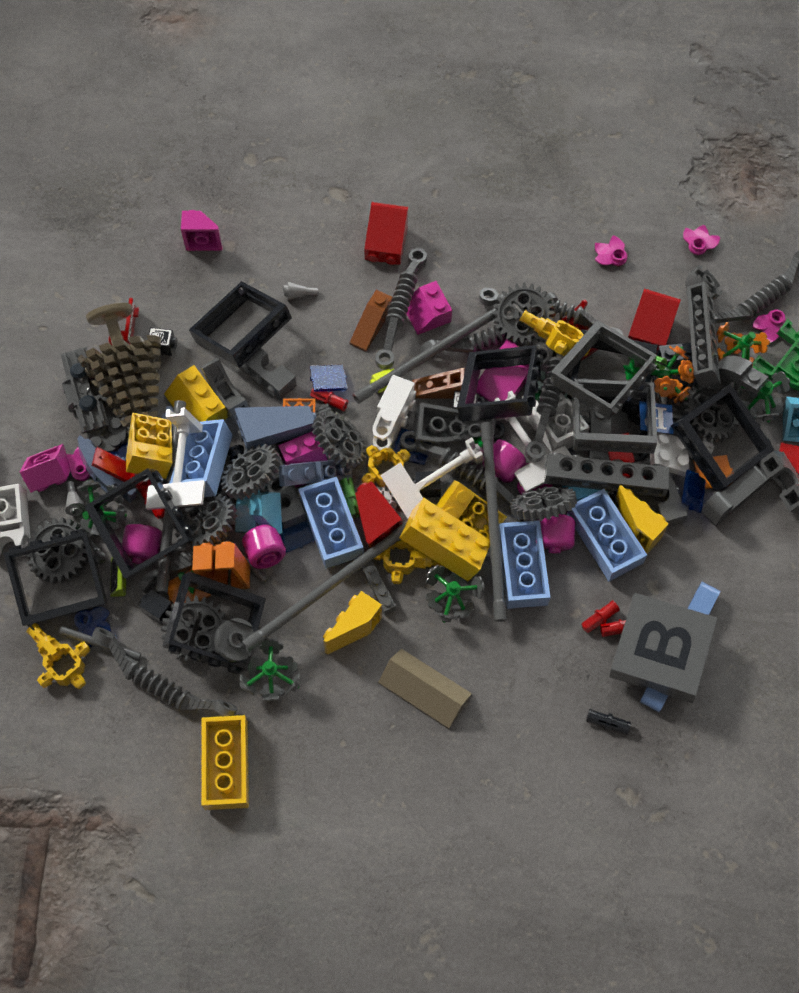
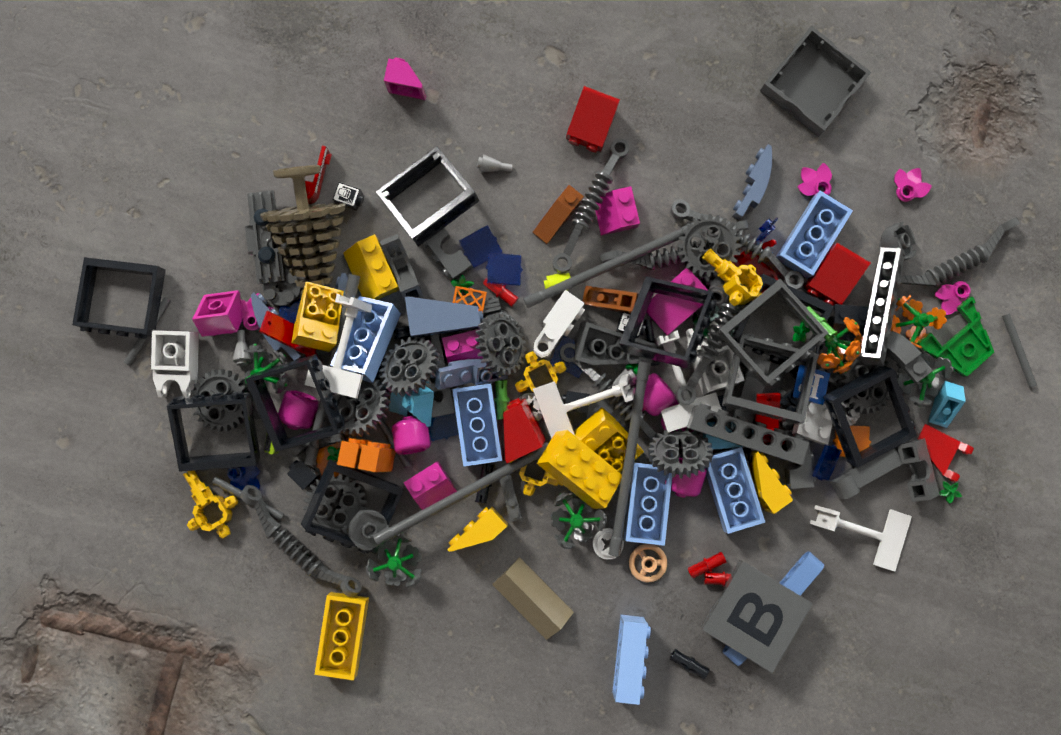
camera: 10 degrees right, 20 degrees up
(289, 396) = (461, 283): none -> green plant
(290, 589) = (430, 486): none -> dark pink slope
(299, 363) = (478, 245): none -> clear blue piece
(348, 585) = (484, 492): none -> black pin
(482, 619) = (598, 544): none -> white gear
(538, 620) = (658, 562): none -> light nougat piece
(543, 722) = (630, 659): none -> light blue brick
(554, 260) = (758, 177): none -> sand blue slope
(576, 295) = (766, 228): none -> clear blue plate
(586, 171) = (815, 81): none -> dark grey tile
(621, 292) = (814, 234): none -> light blue brick
(781, 553) = (890, 539): none -> white piece

